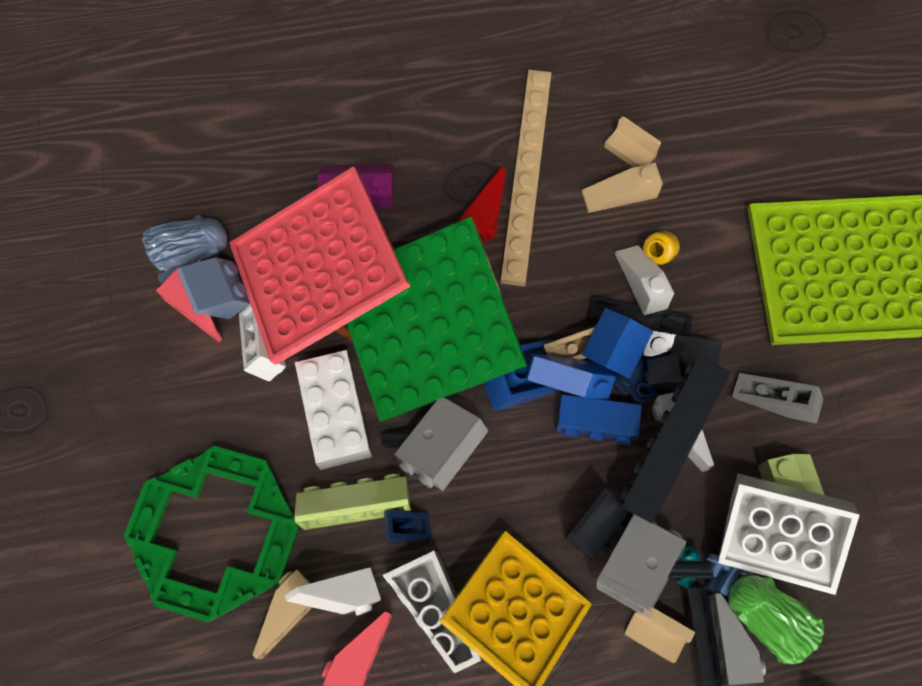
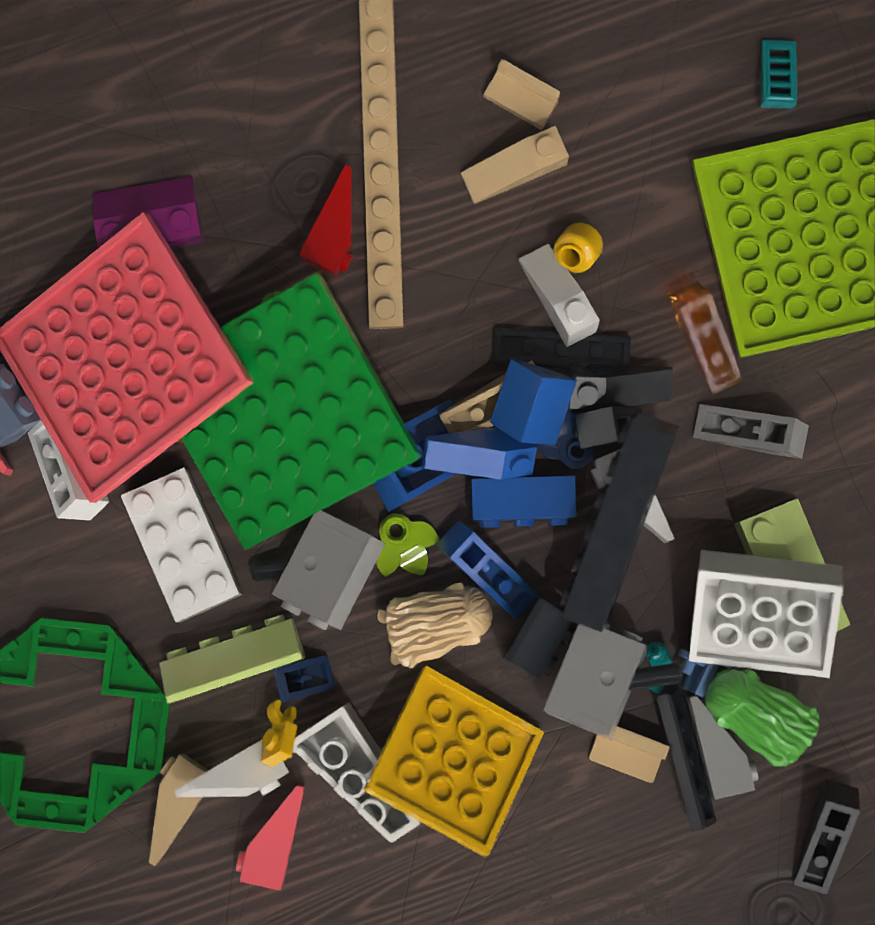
camera: 10 degrees left, 15 degrees up
(378, 569) = (280, 739): none -> yellow plate
(502, 443) = (408, 548): none -> lime plate
(517, 498) = (435, 623): none -> tan hair
(563, 466) = (487, 569): none -> blue slope
(749, 324) = (705, 336): none -> clear orange slope
(814, 176) = (778, 100): none -> teal slope

